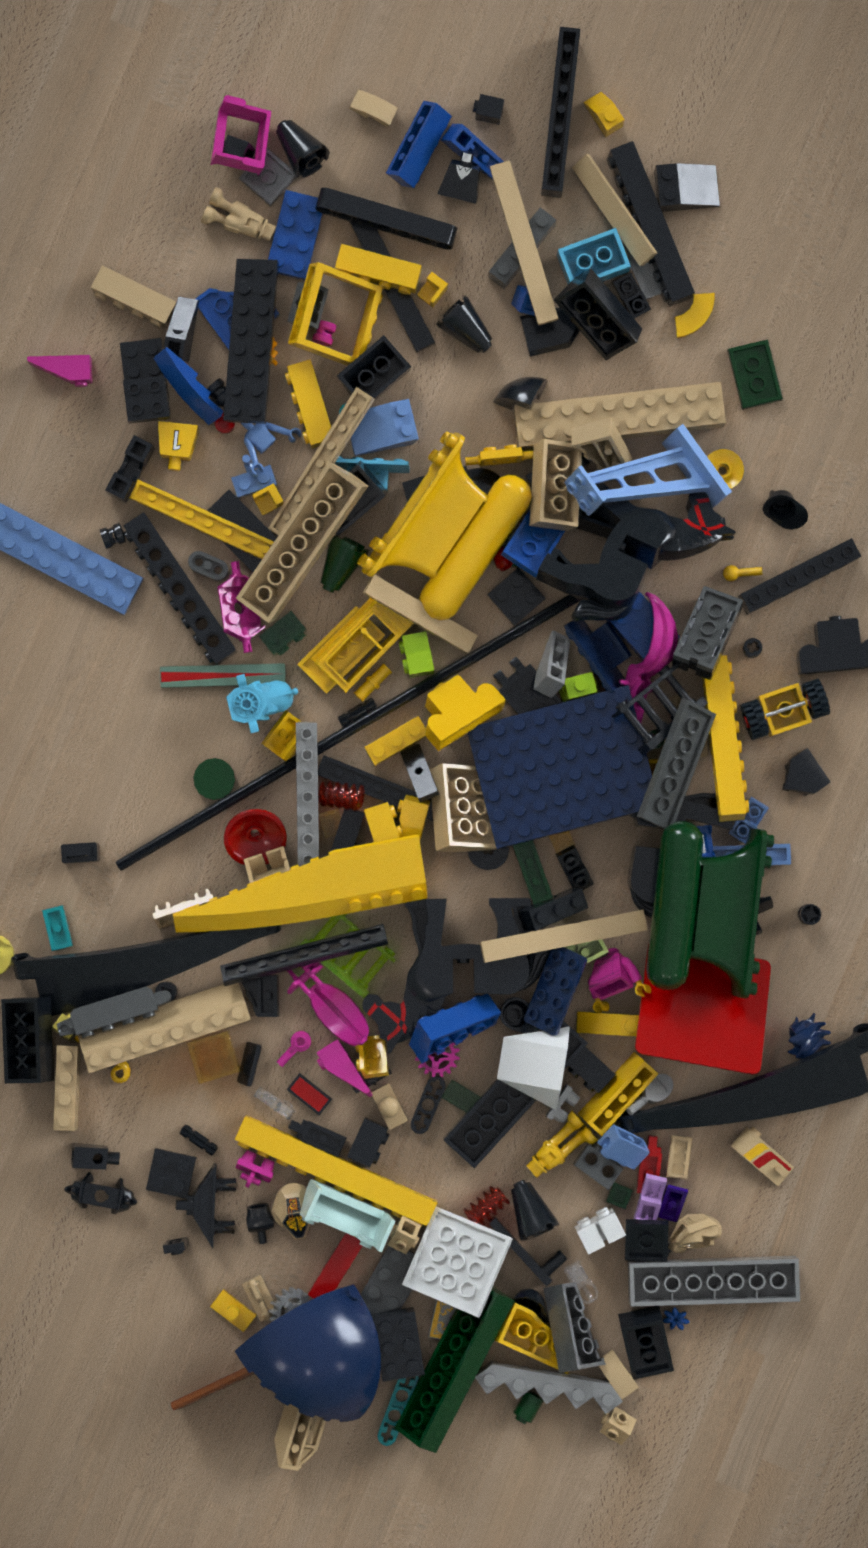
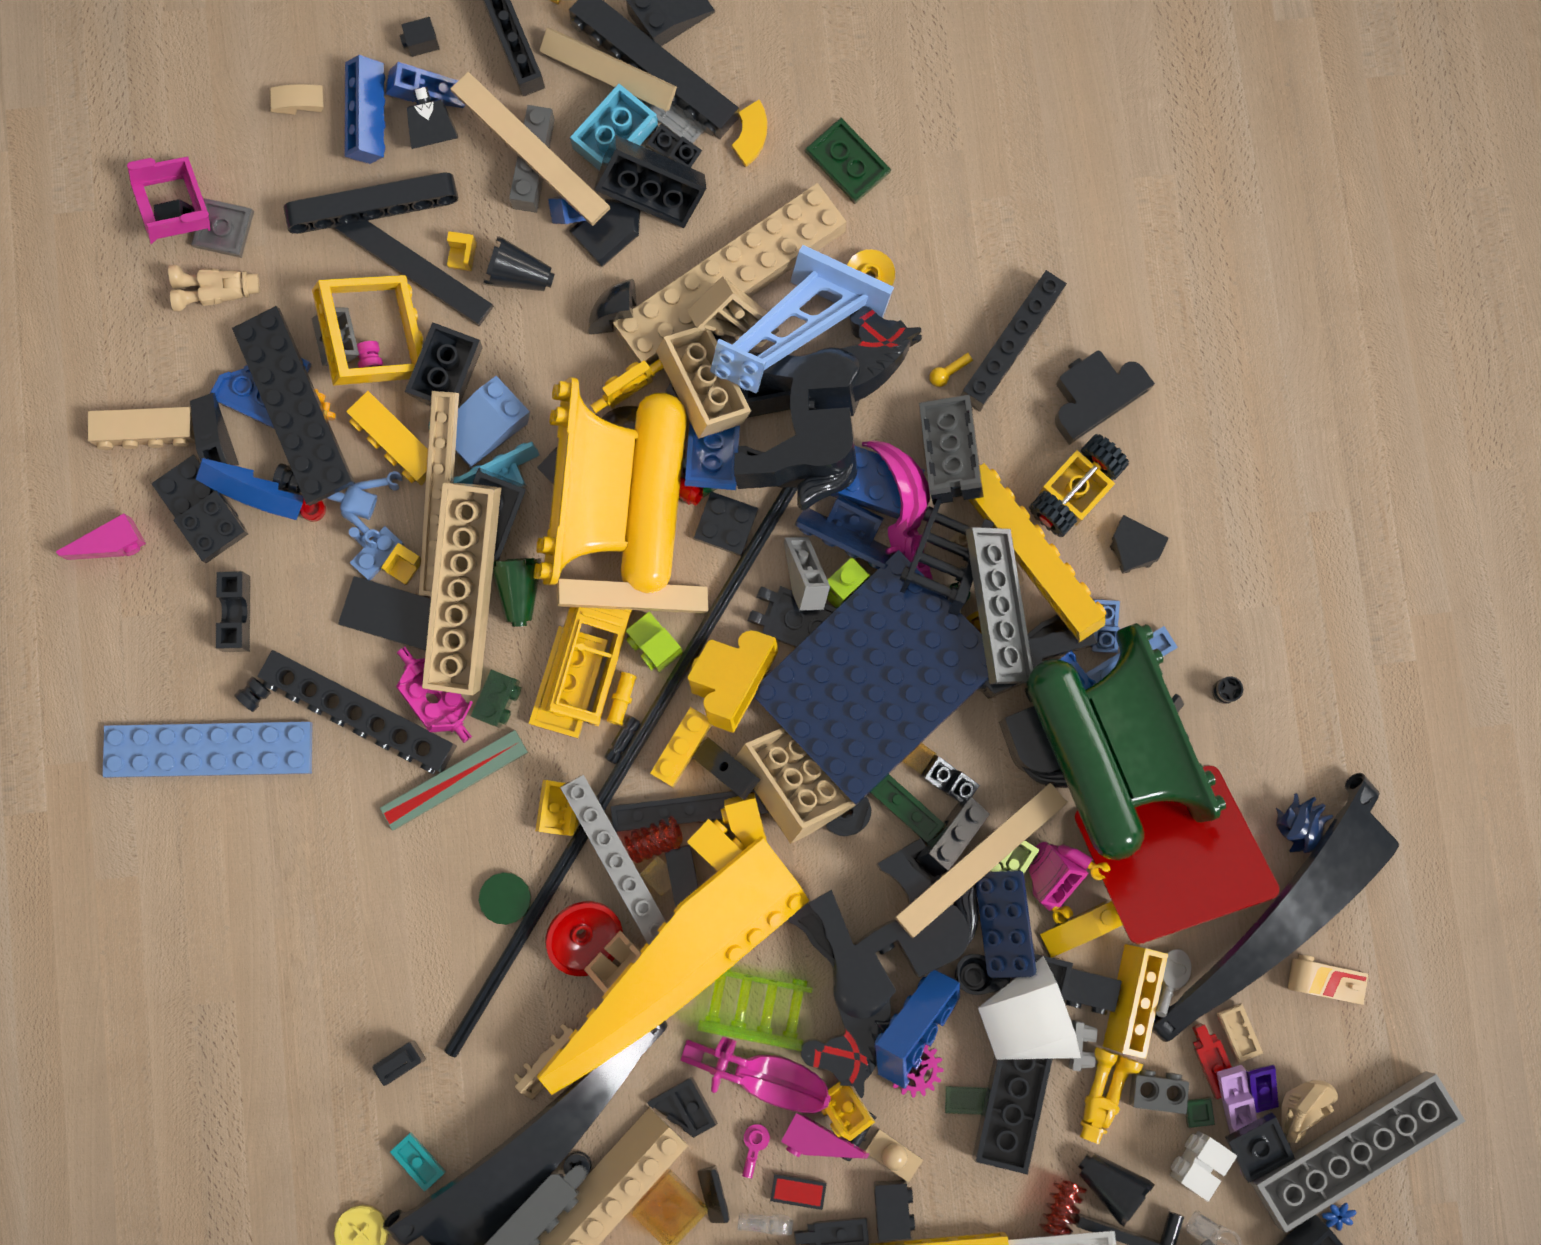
camera: 25 degrees left, 5 degrees down
(177, 442) = (270, 556): yellow torso -> none
(200, 519) = (338, 625): yellow tile -> none
(208, 566) = (375, 670): dark grey plate -> none
(258, 701) = (507, 786): medium azure helmet -> none
(295, 234) = (283, 271): blue plate -> none
(301, 148) = (242, 178): black cone -> none
(304, 955) = (707, 1040): black tile -> none
(379, 269) = (392, 257): yellow brick -> none
(428, 1087) = (930, 1150): black beam -> none
(623, 1147) = (1175, 1057): medium blue brick -> none
(755, 653) = (1000, 448): black bush -> none
(785, 510) = (959, 280): black piece -> none

